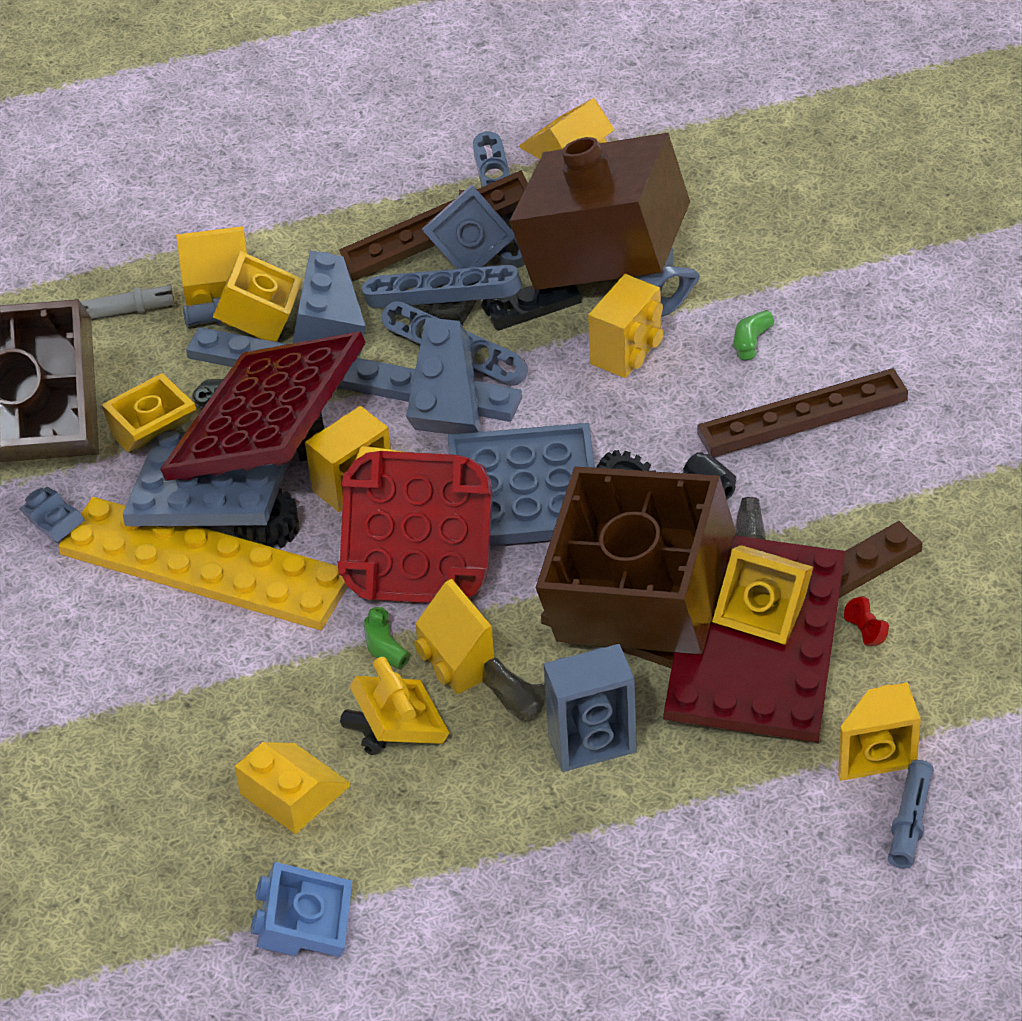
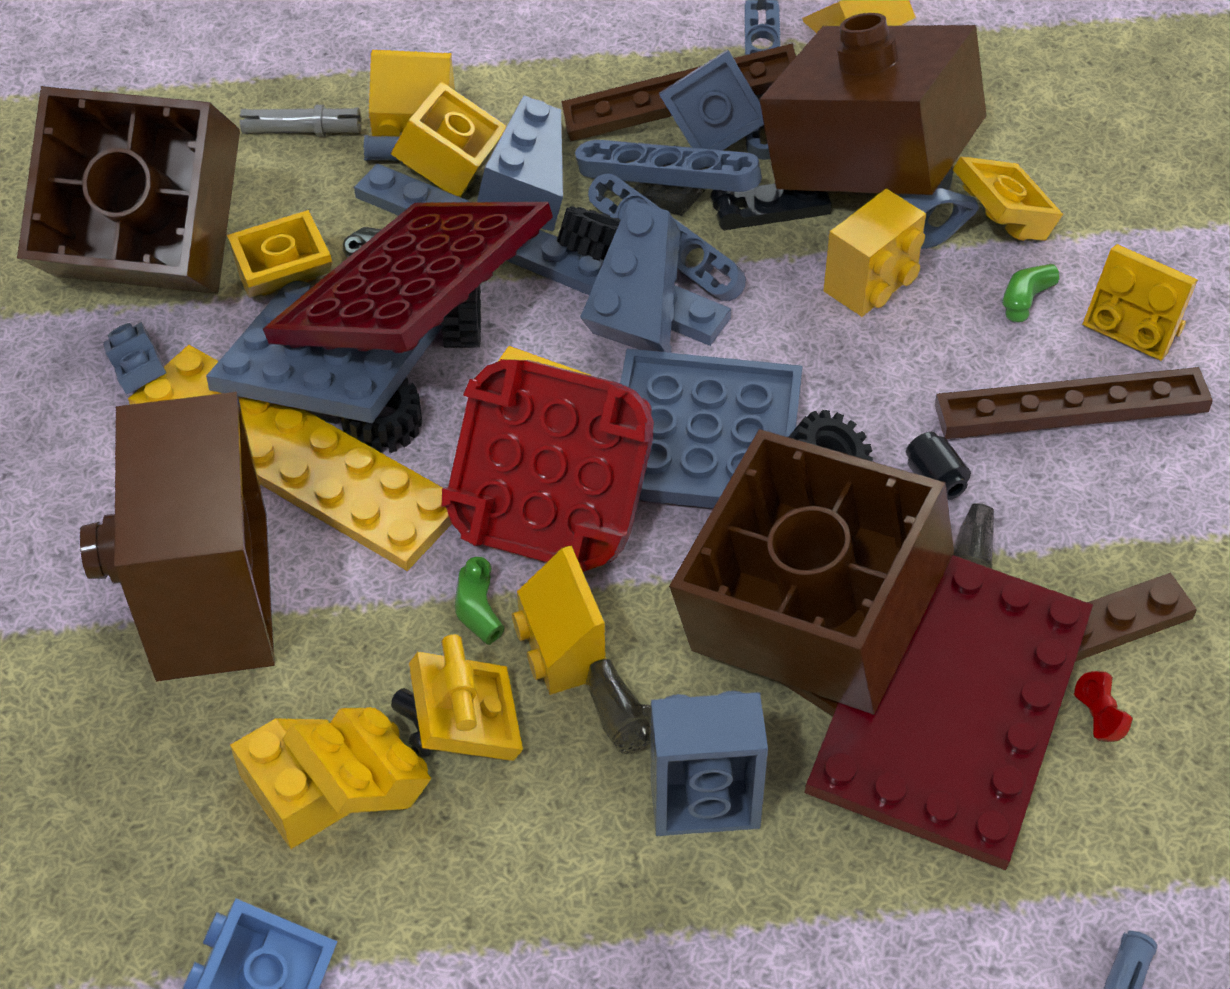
camera: 10 degrees right, 5 degrees up
(161, 627) = (188, 537): none -> reddish brown brick
(333, 759) = (359, 761): none -> yellow plate
(336, 448) = (485, 336): yellow brick -> none
(394, 350) = (587, 232): none -> black tyre
(722, 263) = (1009, 197): none -> yellow plate
(762, 594) = (971, 647): yellow slope -> none
(839, 327) = (1140, 302): none -> yellow plate
(880, 733) = (1095, 883): yellow slope -> none

